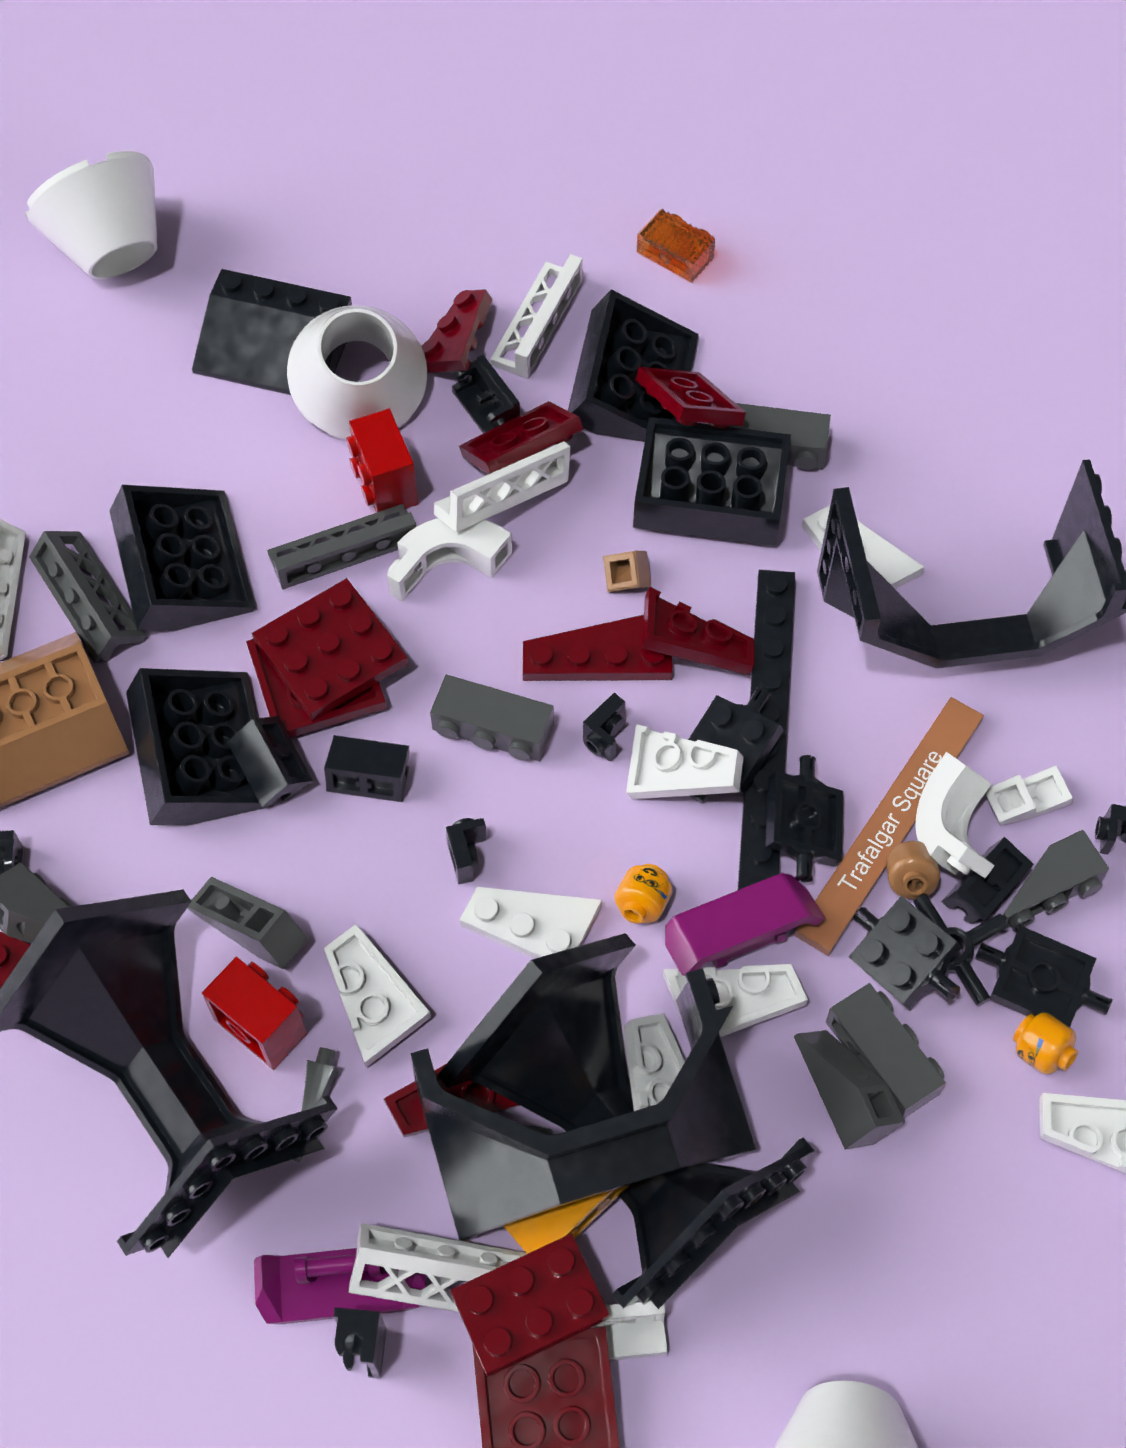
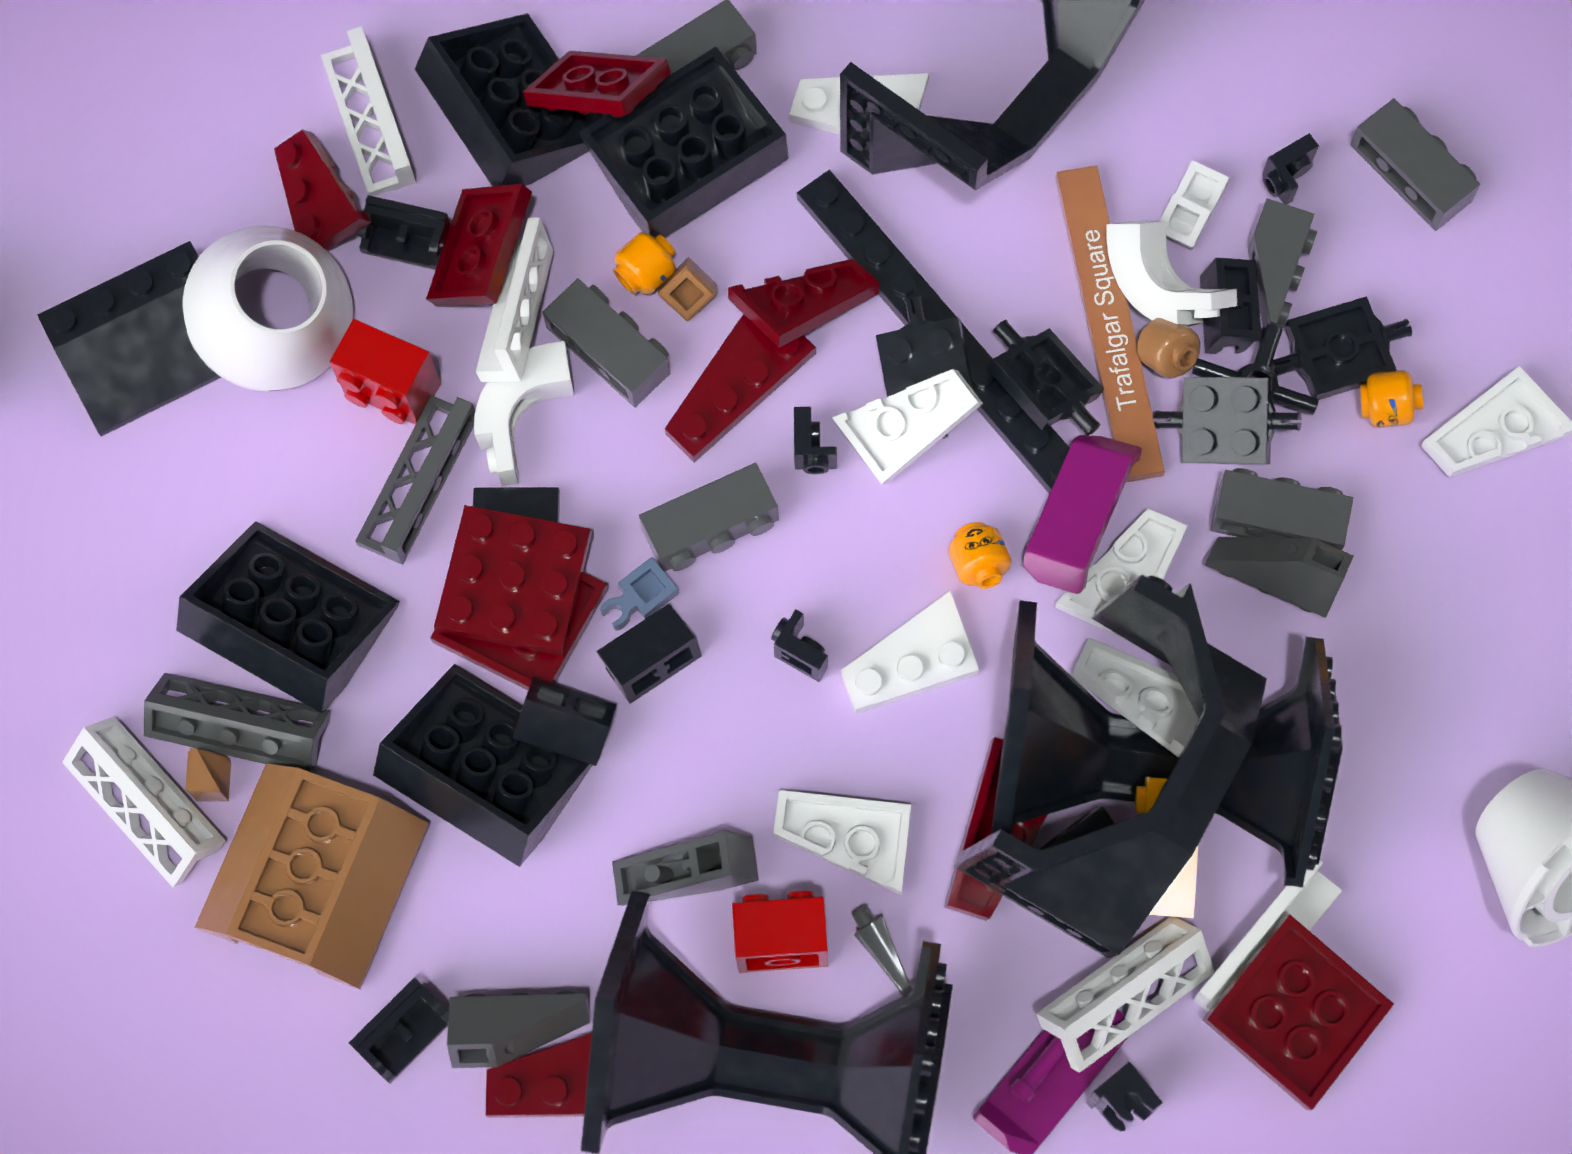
camera: 40 degrees left, 10 degrees up
(36, 609) = (207, 776): none -> medium nougat slope
(391, 614) = (524, 501): none -> black tile
(404, 727) = (643, 590): none -> sand blue plate
(529, 1304) = (1224, 951): dark red plate -> none
(542, 560) = (607, 341): none -> dark grey brick
(613, 531) = (644, 263): none -> light orange head

